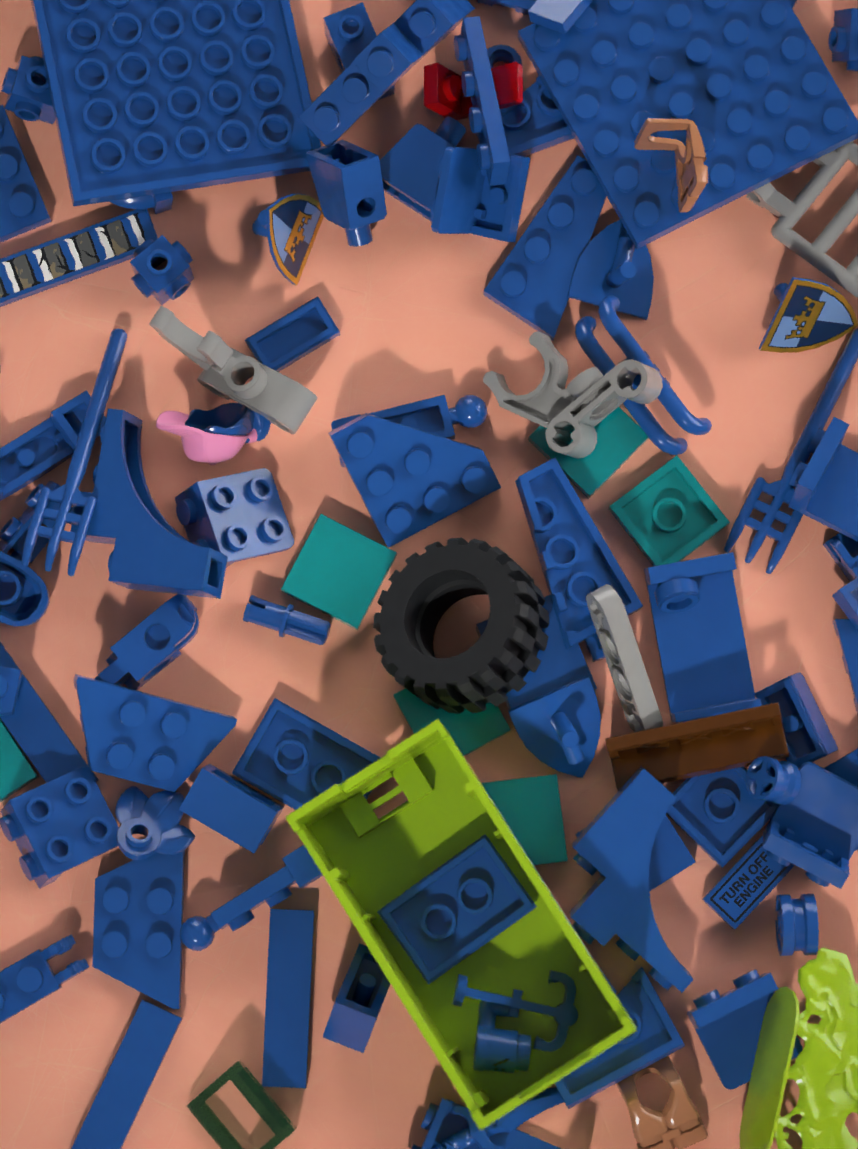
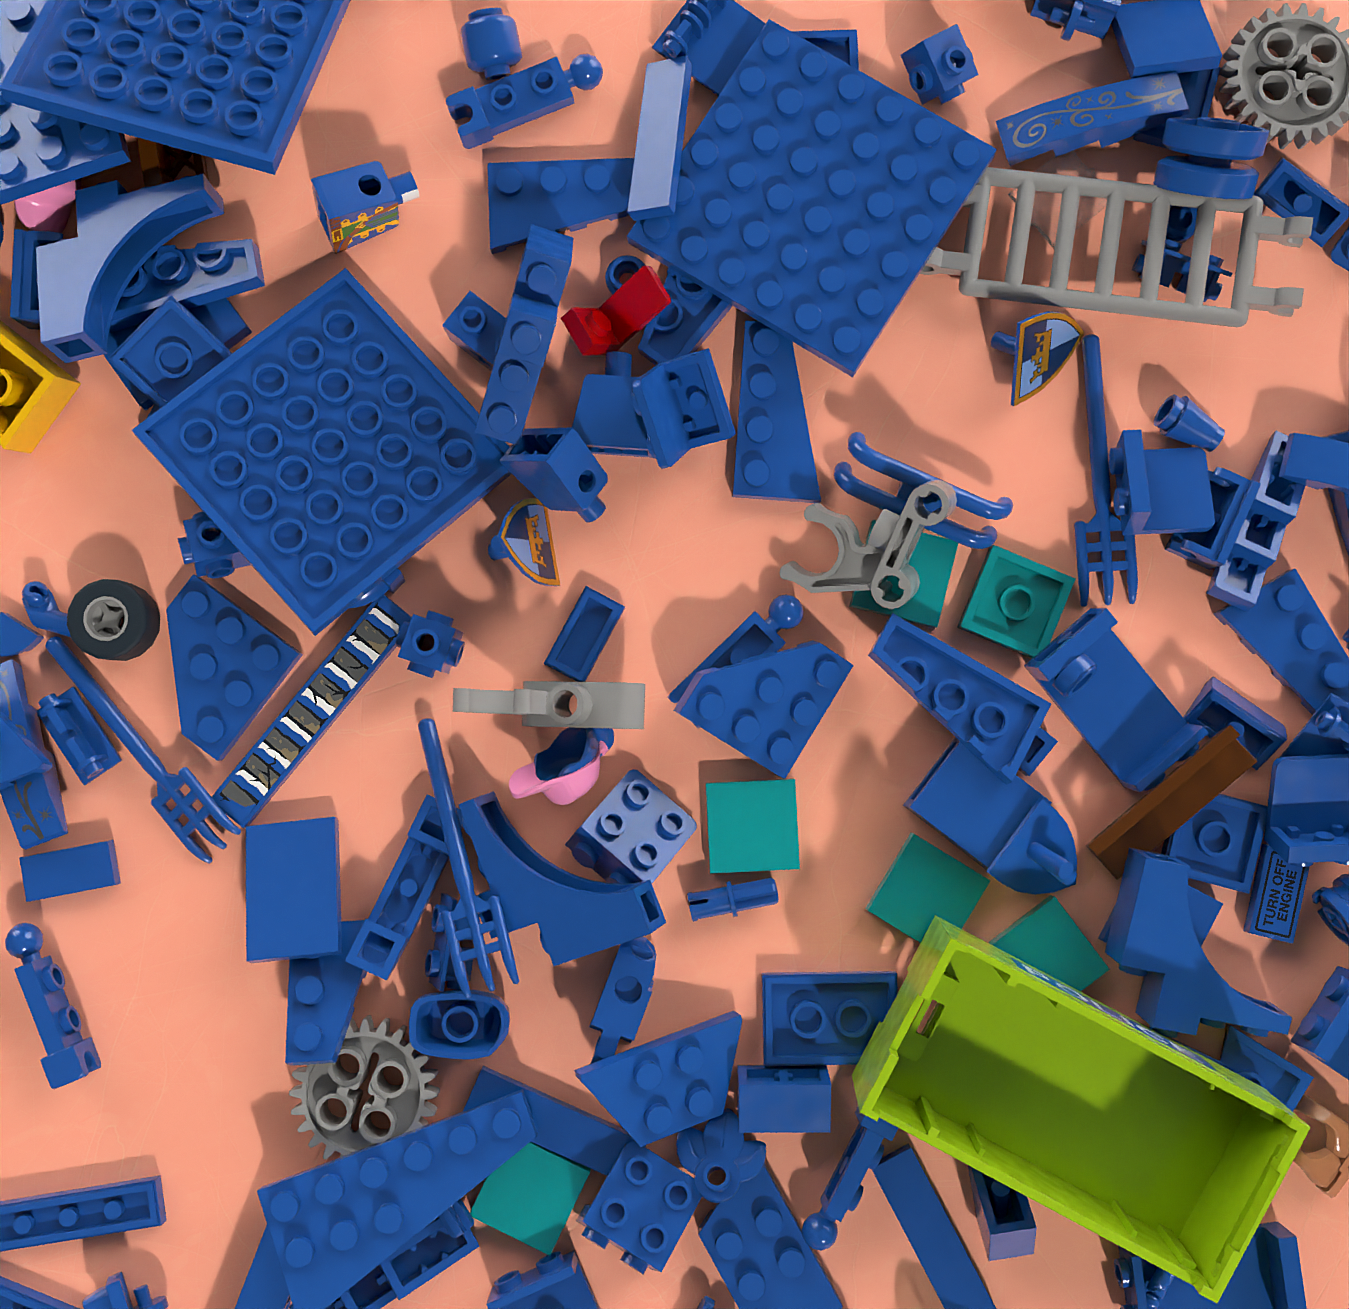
camera: 30 degrees left, 5 degrees up
(427, 591) = (846, 832): black tyre -> none
(457, 909) = (1045, 1079): blue tile -> none
(485, 113) = (645, 329): blue plate -> none
(499, 1048) = (1160, 1186): blue piece -> none
(564, 1013) = (1196, 1117): blue piece -> none
(614, 268) = (837, 407): blue shield -> none
(624, 659) = (1065, 764): light grey beam -> none
(690, 167) = (868, 274): nougat piece -> none
(773, 780) = (1253, 805): blue wheel -> none

